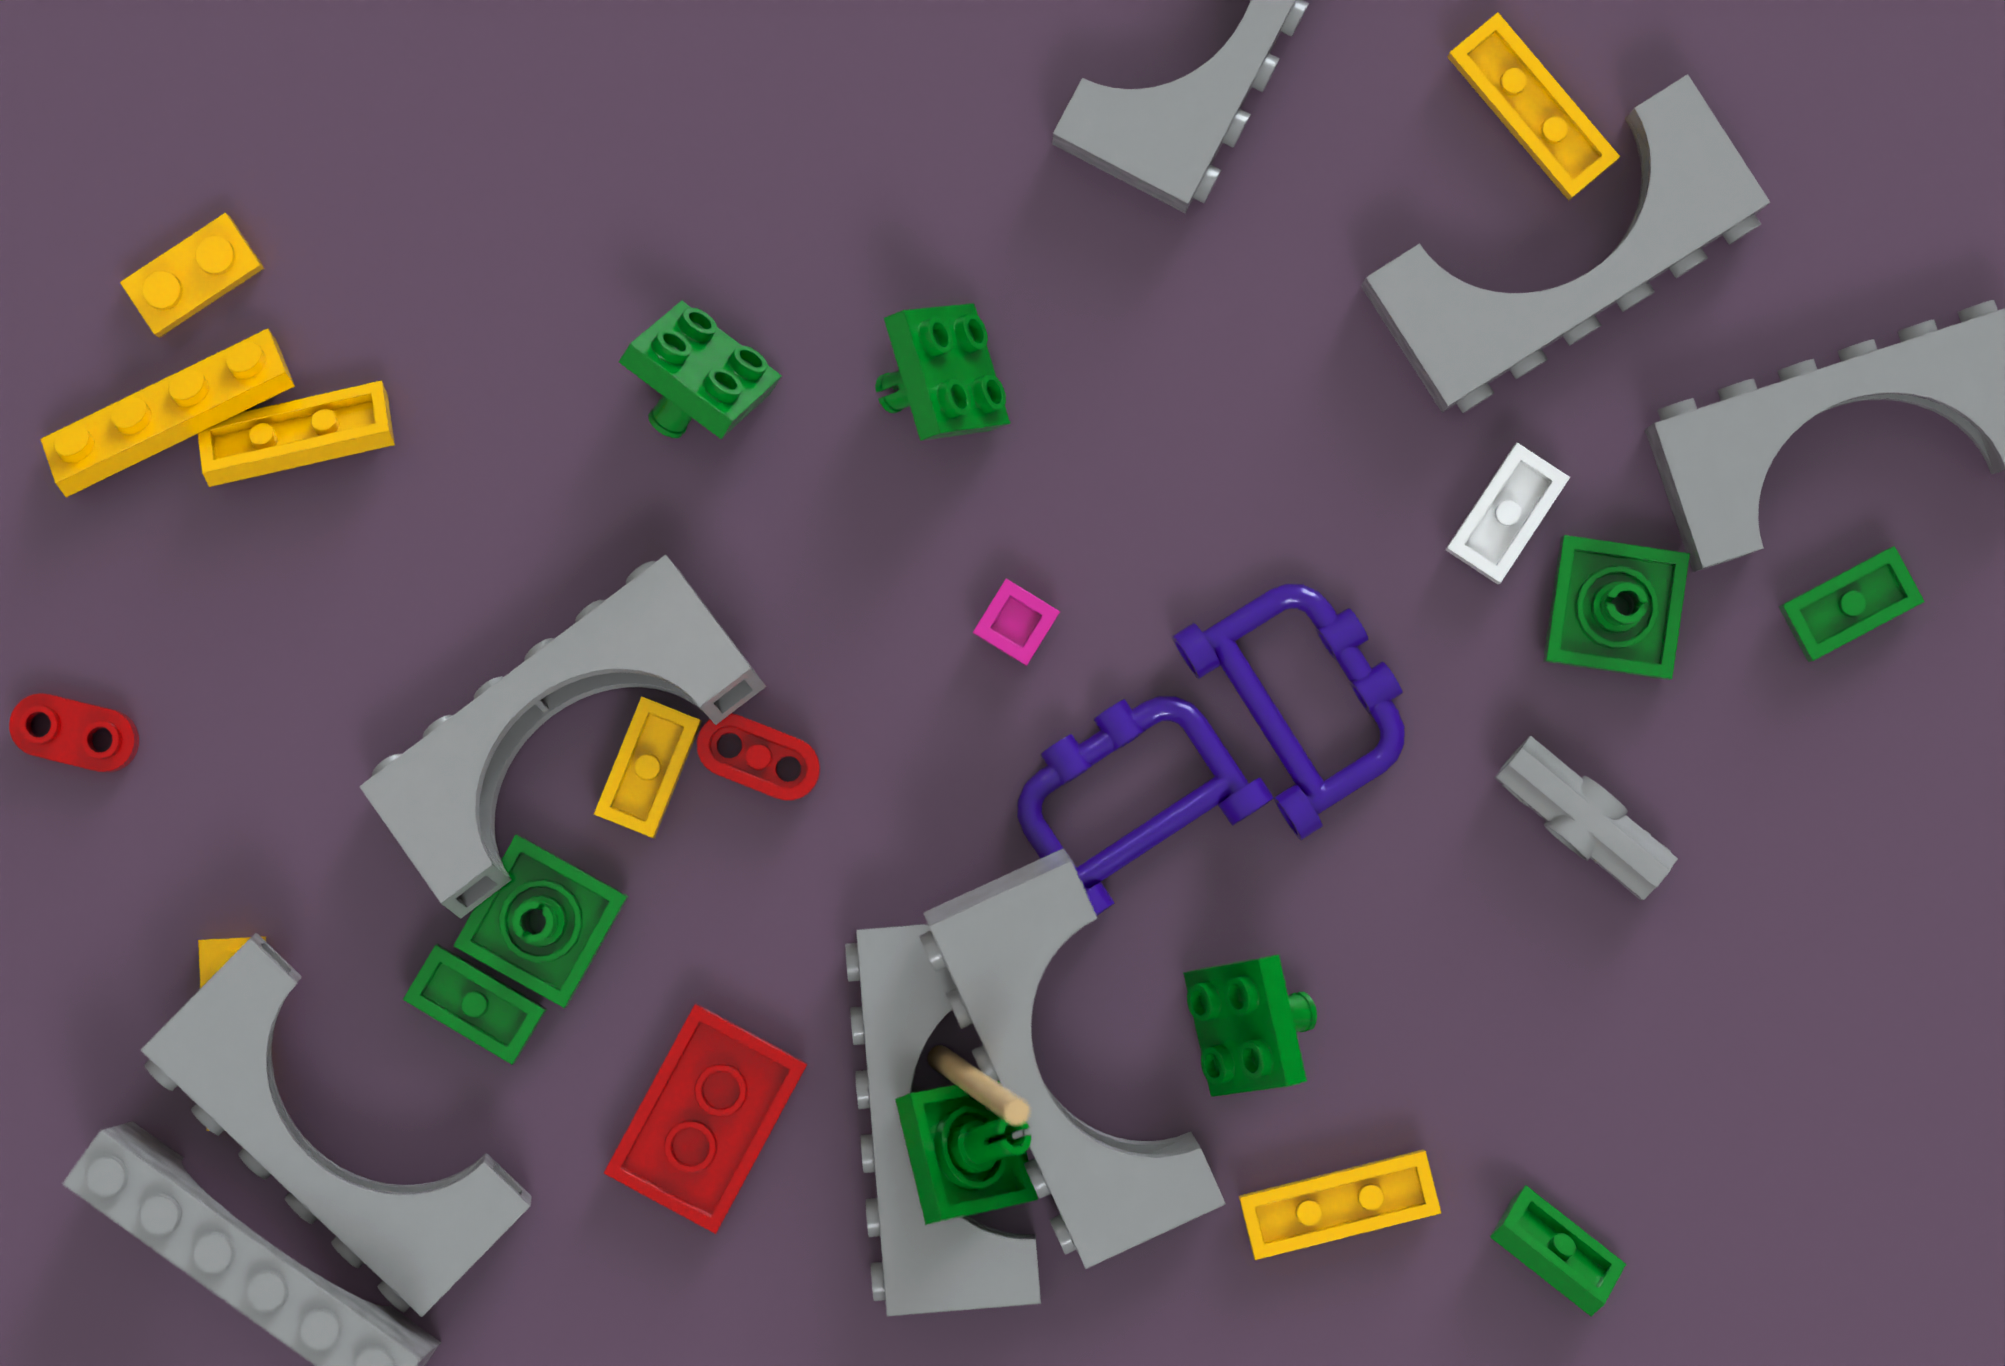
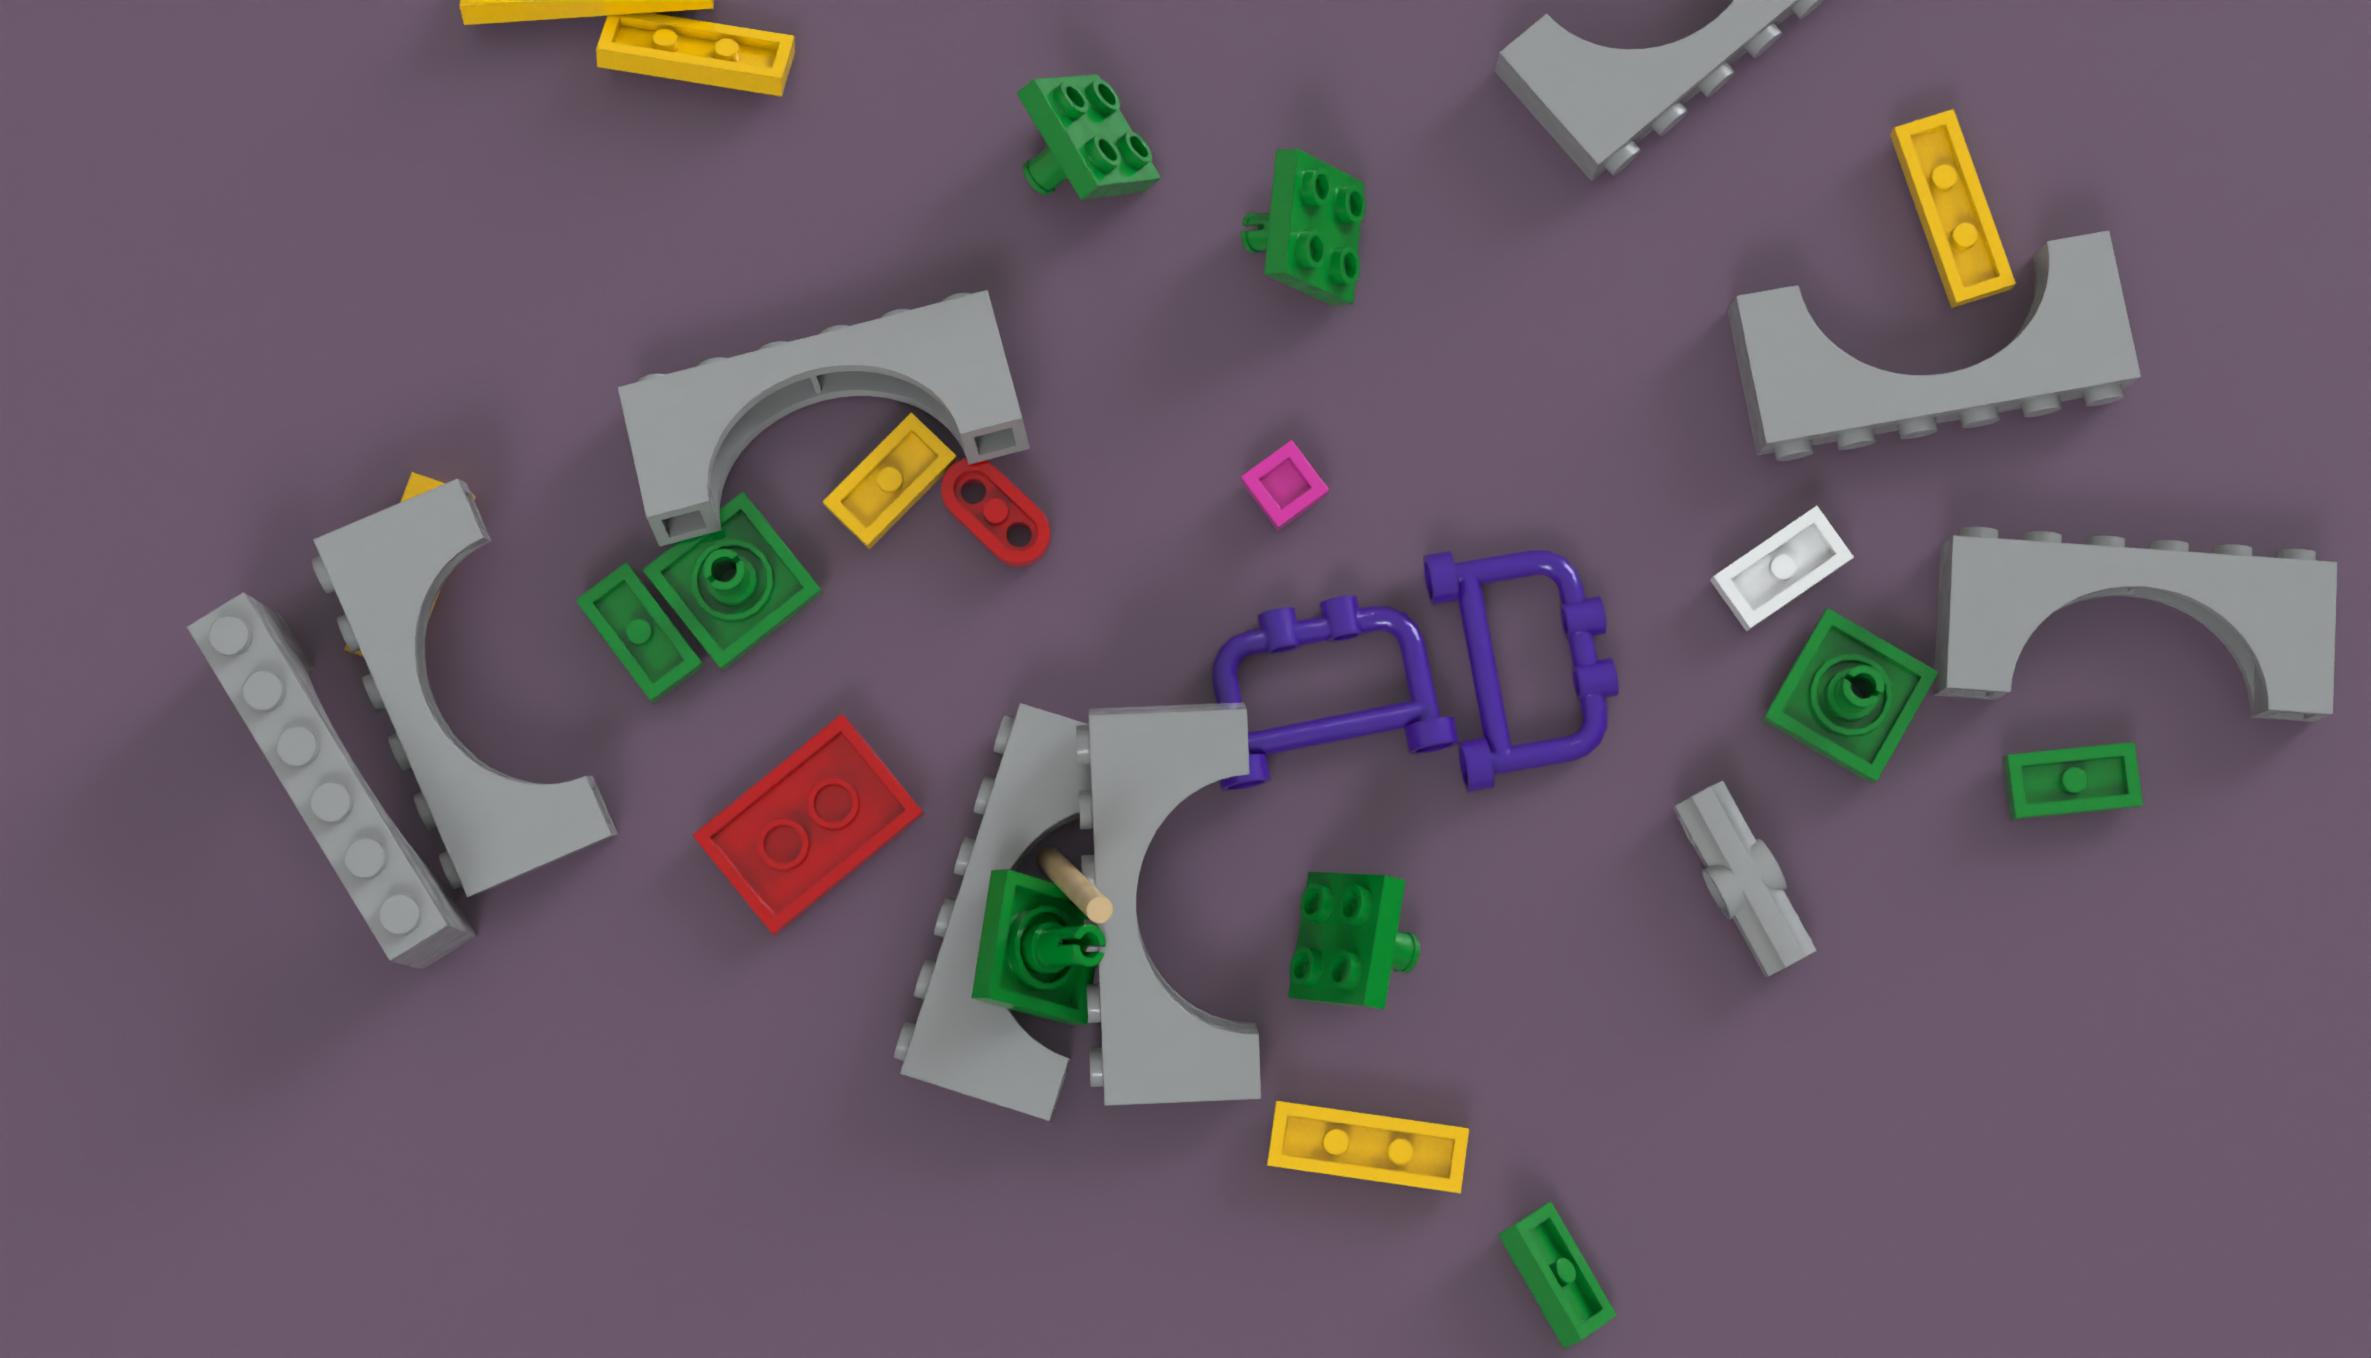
camera: 20 degrees right, 5 degrees down
(72, 732) = (378, 239): red plate -> none

